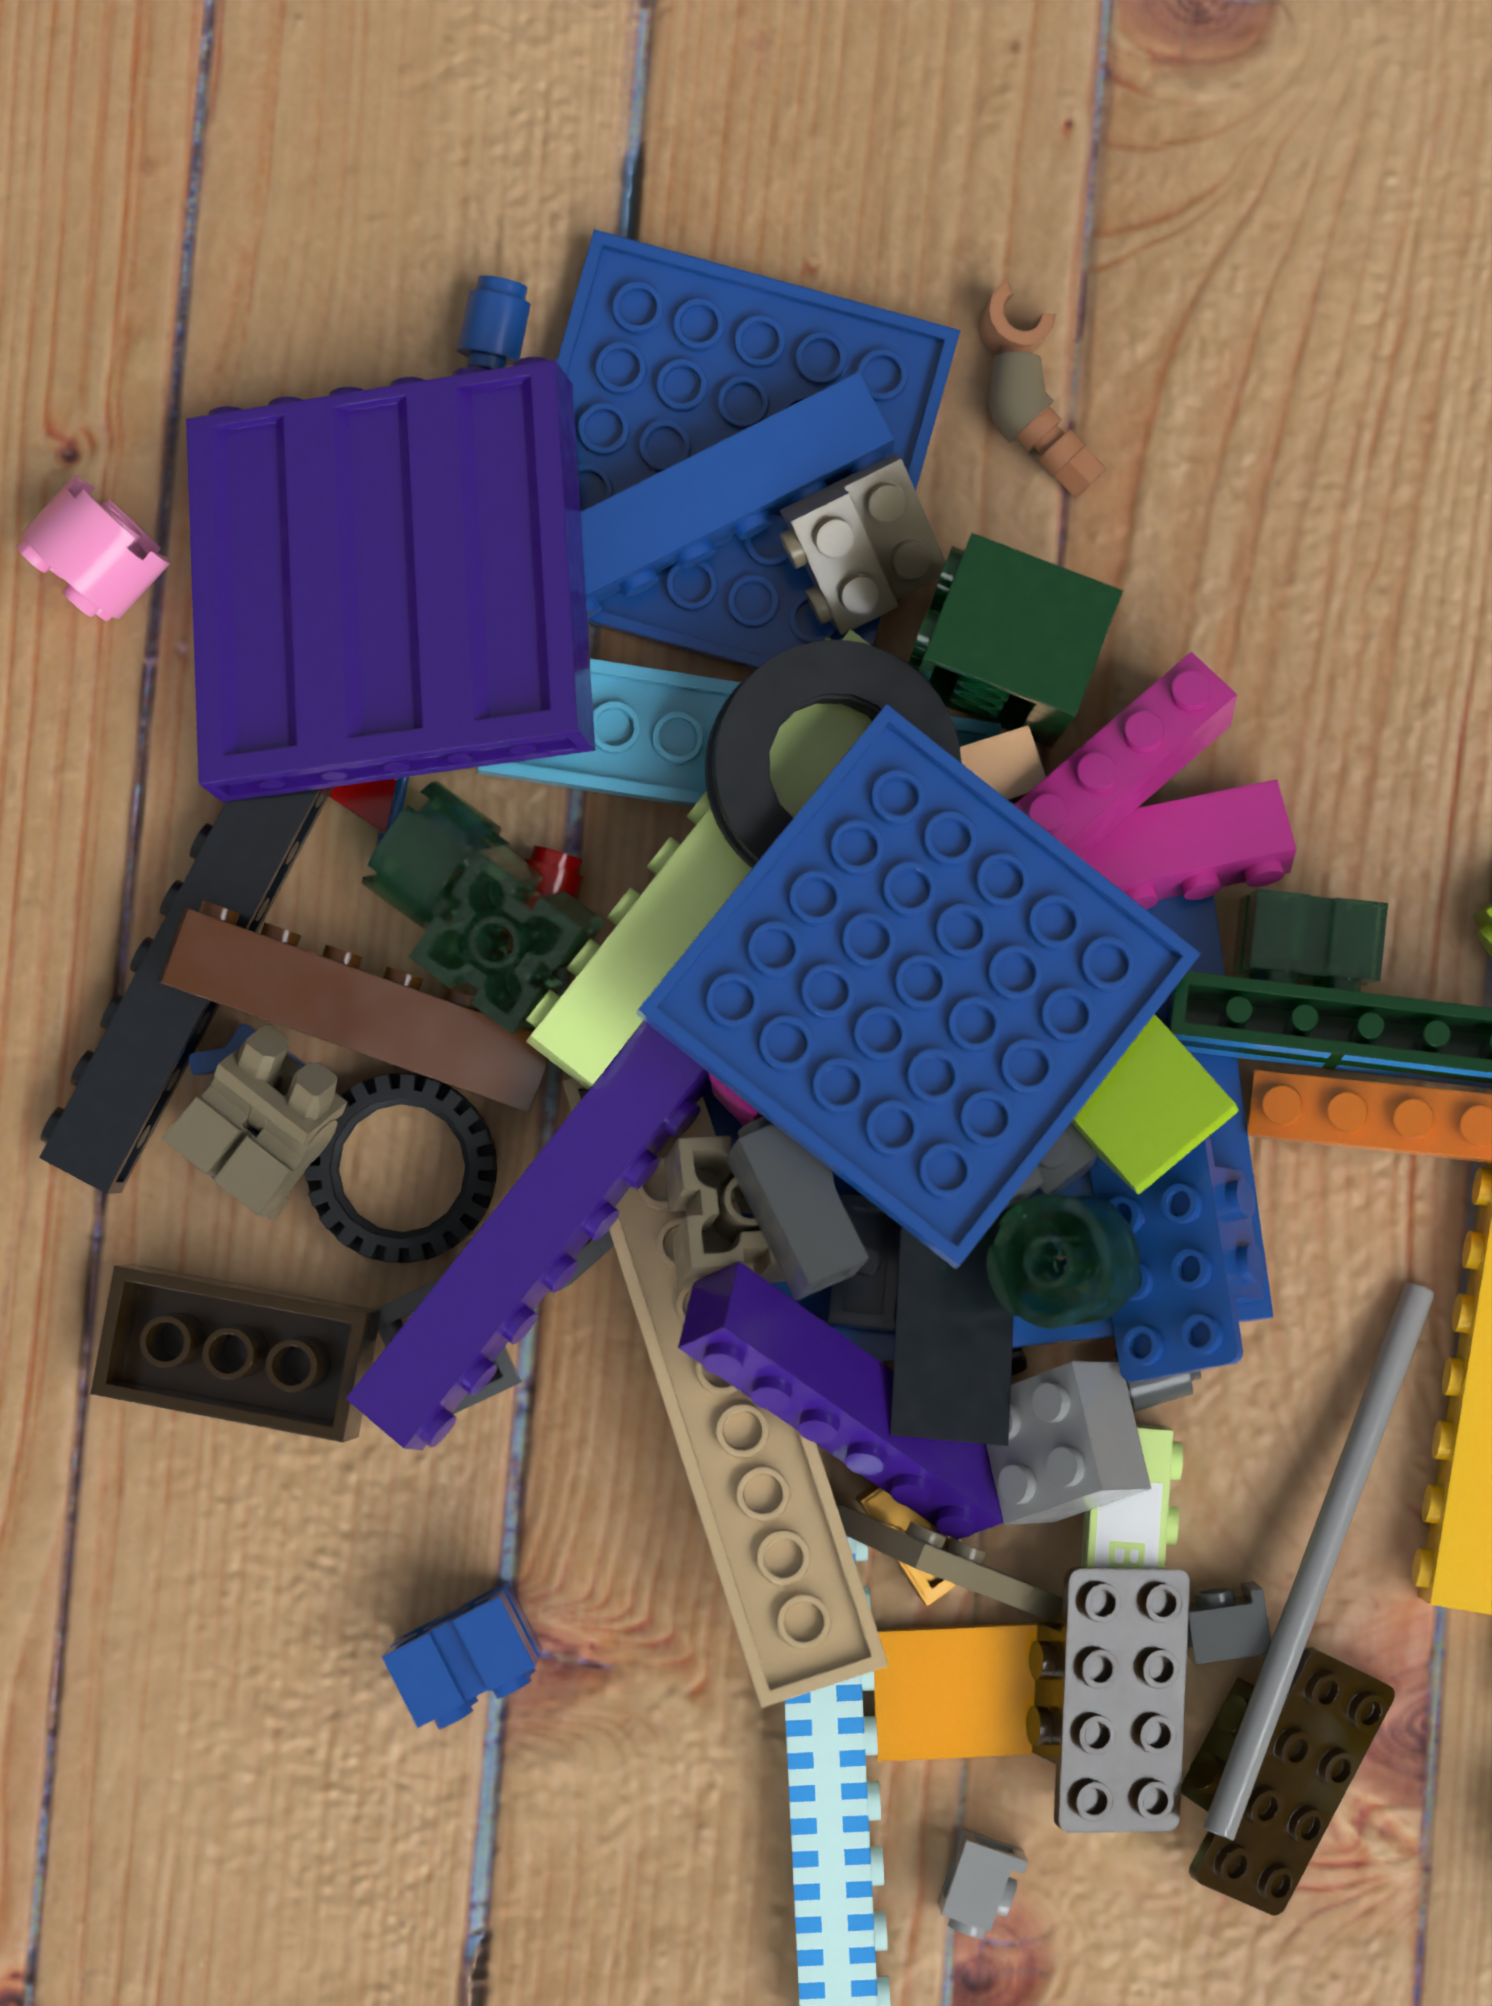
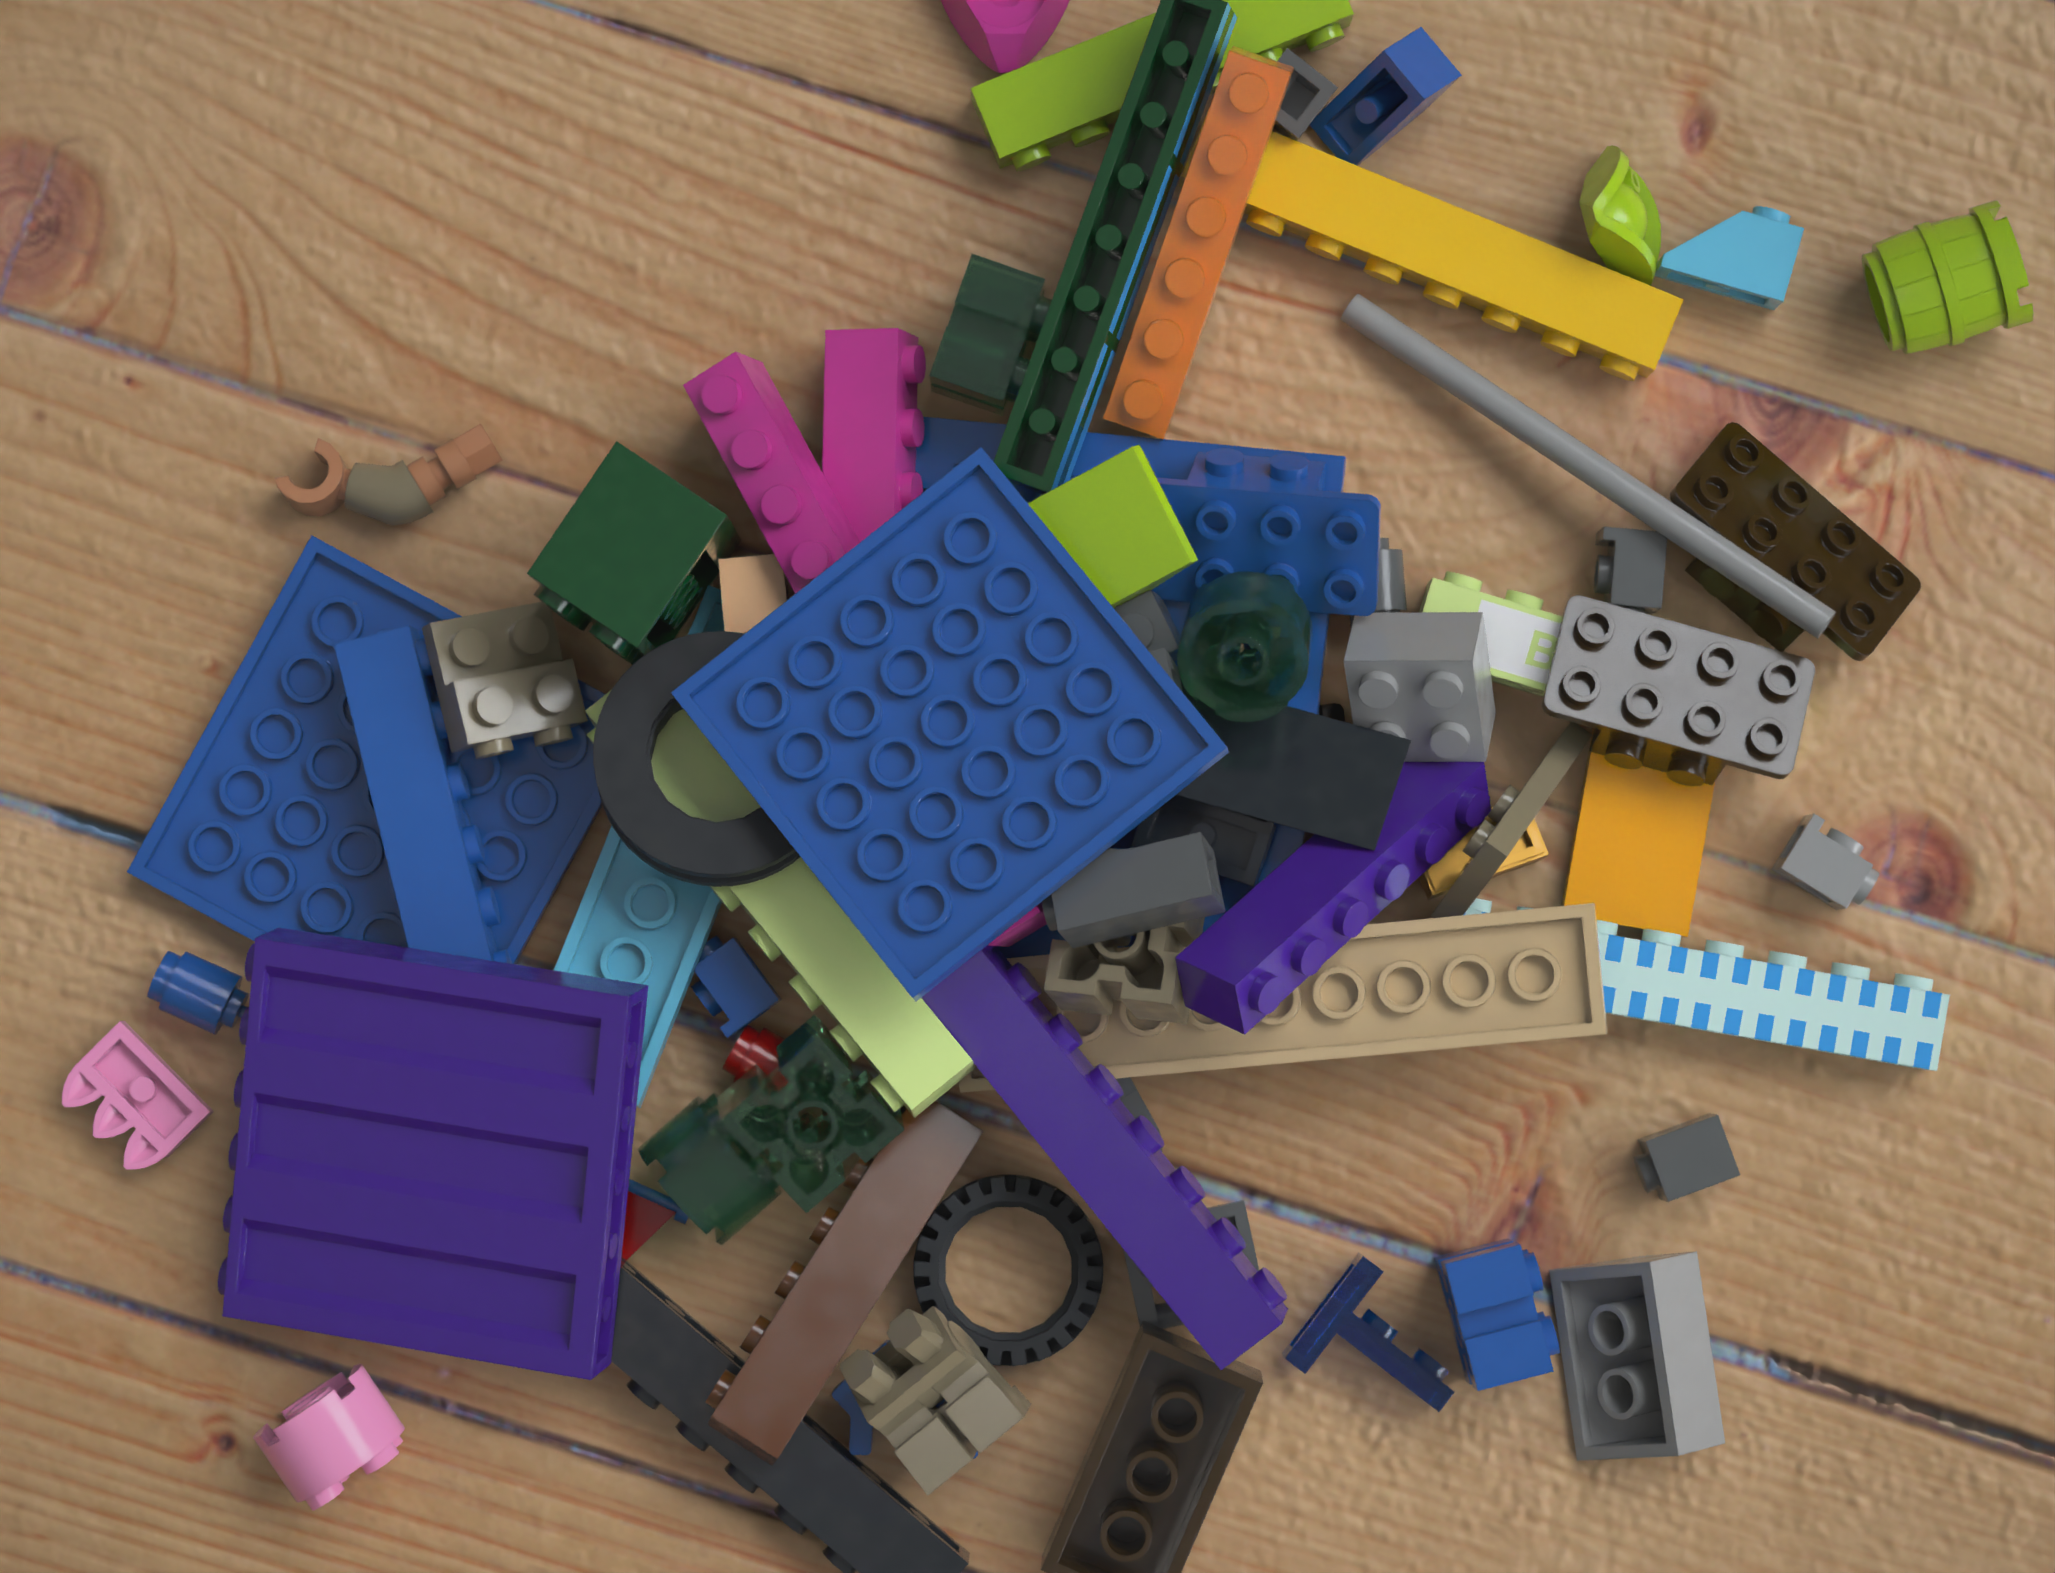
camera: 80 degrees left, 0 degrees up
(383, 290) = (137, 1093): none -> bright pink plate
(416, 1534) = (1367, 1334): none -> clear blue bracket
(453, 1804) = (1637, 1357): none -> light grey slope
(617, 837) = (732, 985): none -> blue brick
(659, 1809) = (1686, 1158): none -> dark grey brick

